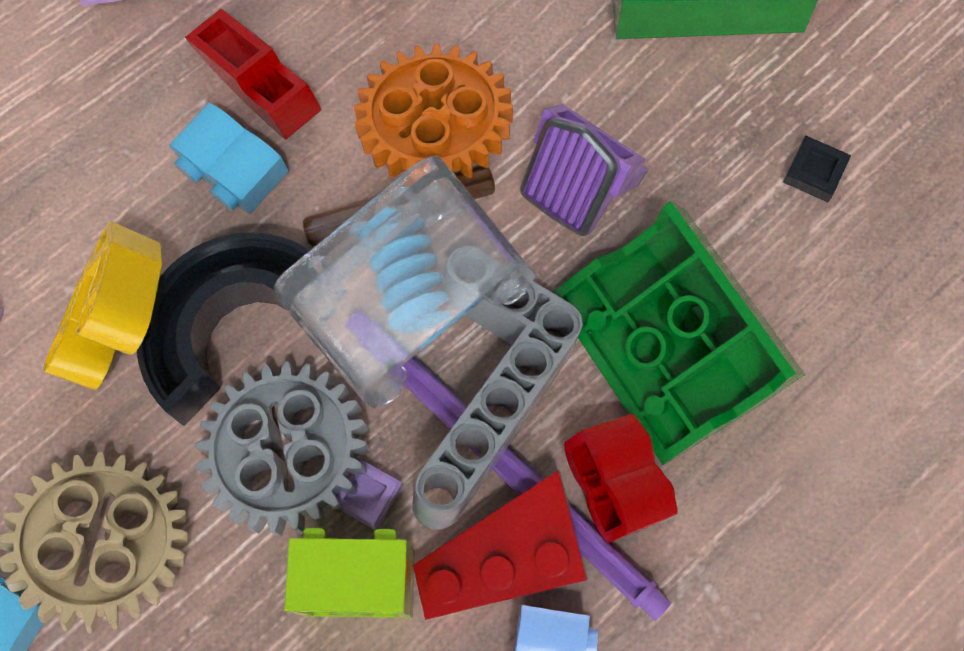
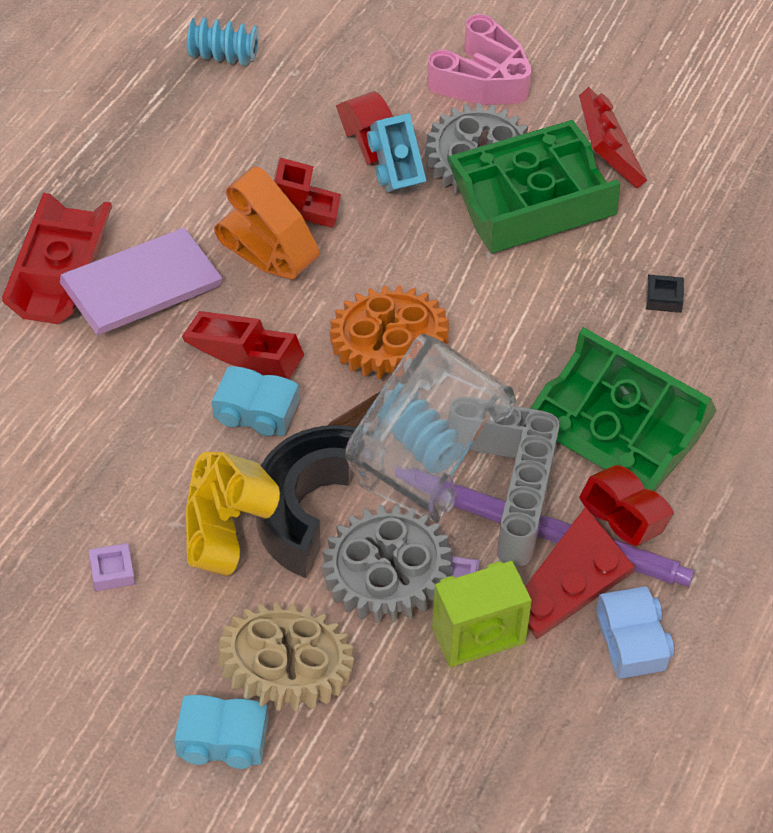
camera: 25 degrees left, 20 degrees down
(577, 170) = (509, 333): medium lavender piece -> none

